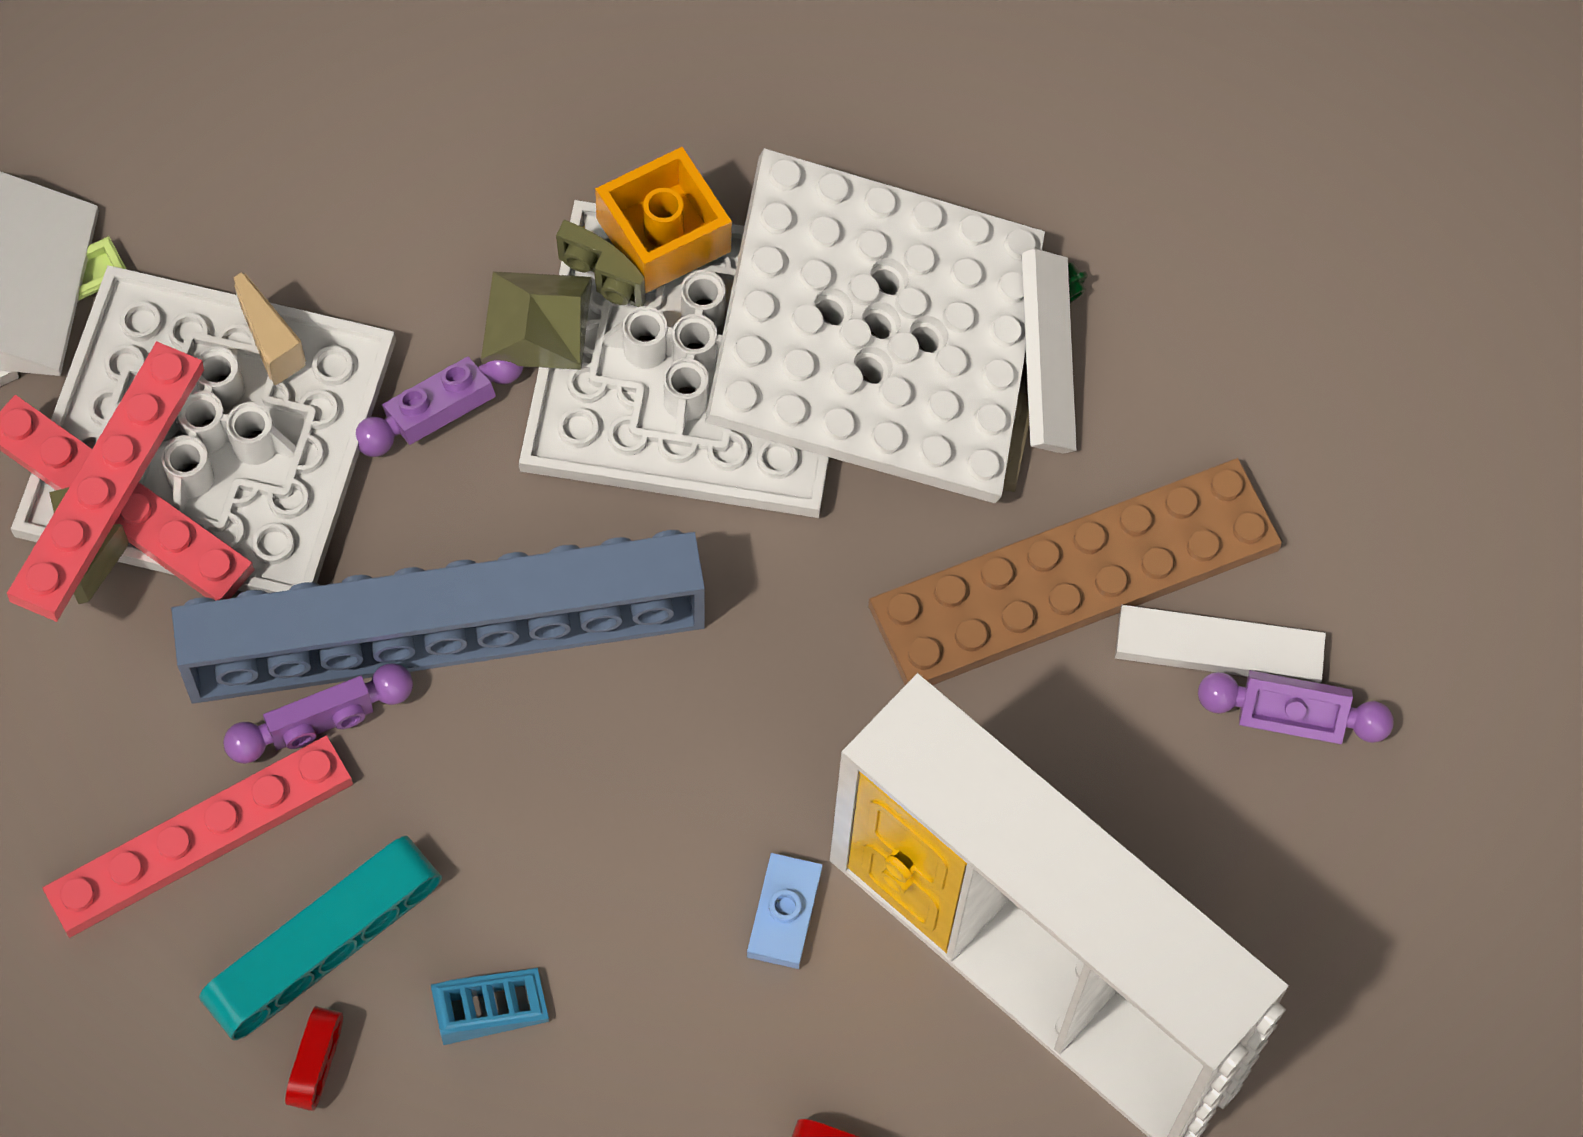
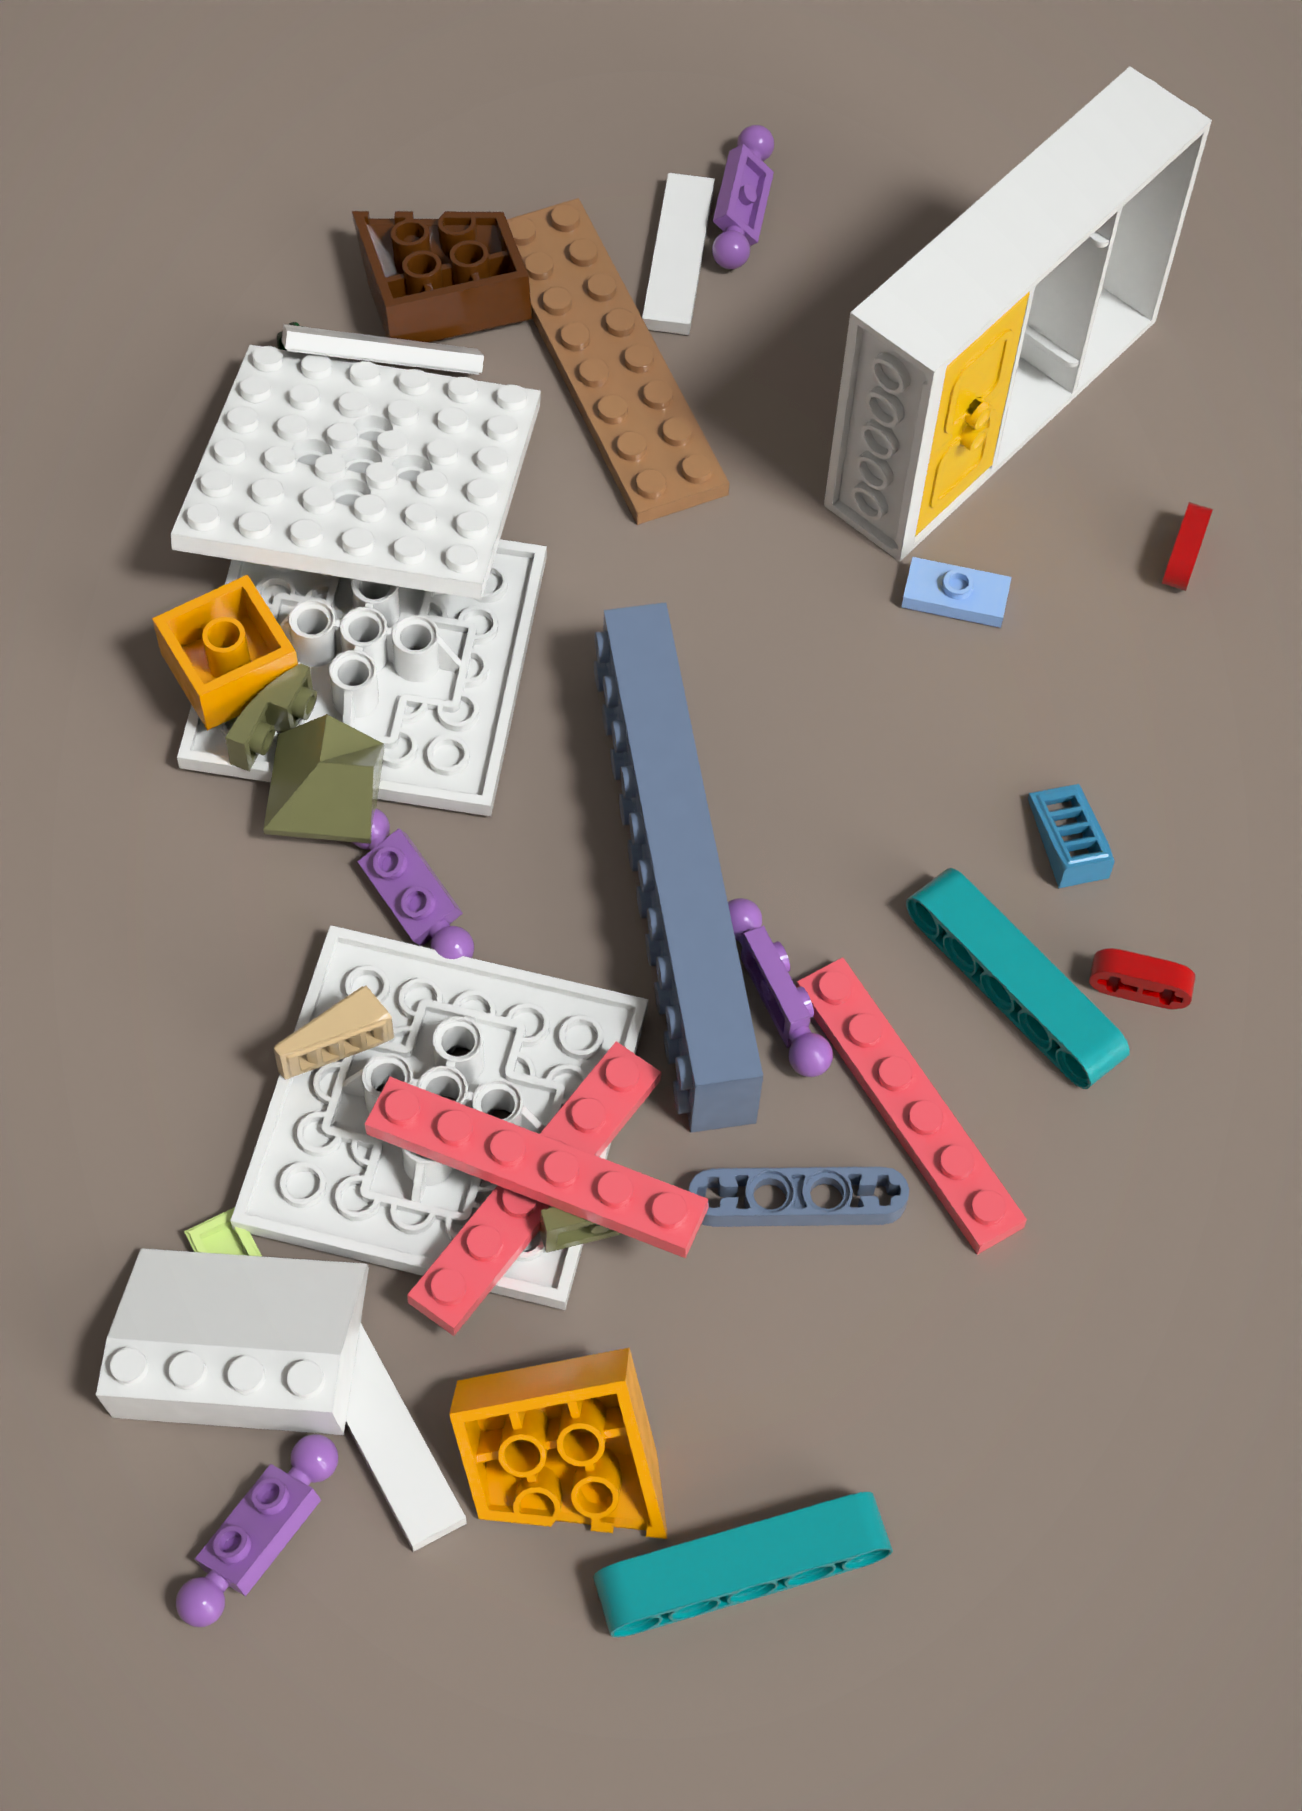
camera: 90 degrees left, 5 degrees down
(113, 732) = (797, 1186): none -> sand blue beam
(1153, 402) = (443, 273): none -> reddish brown wedge

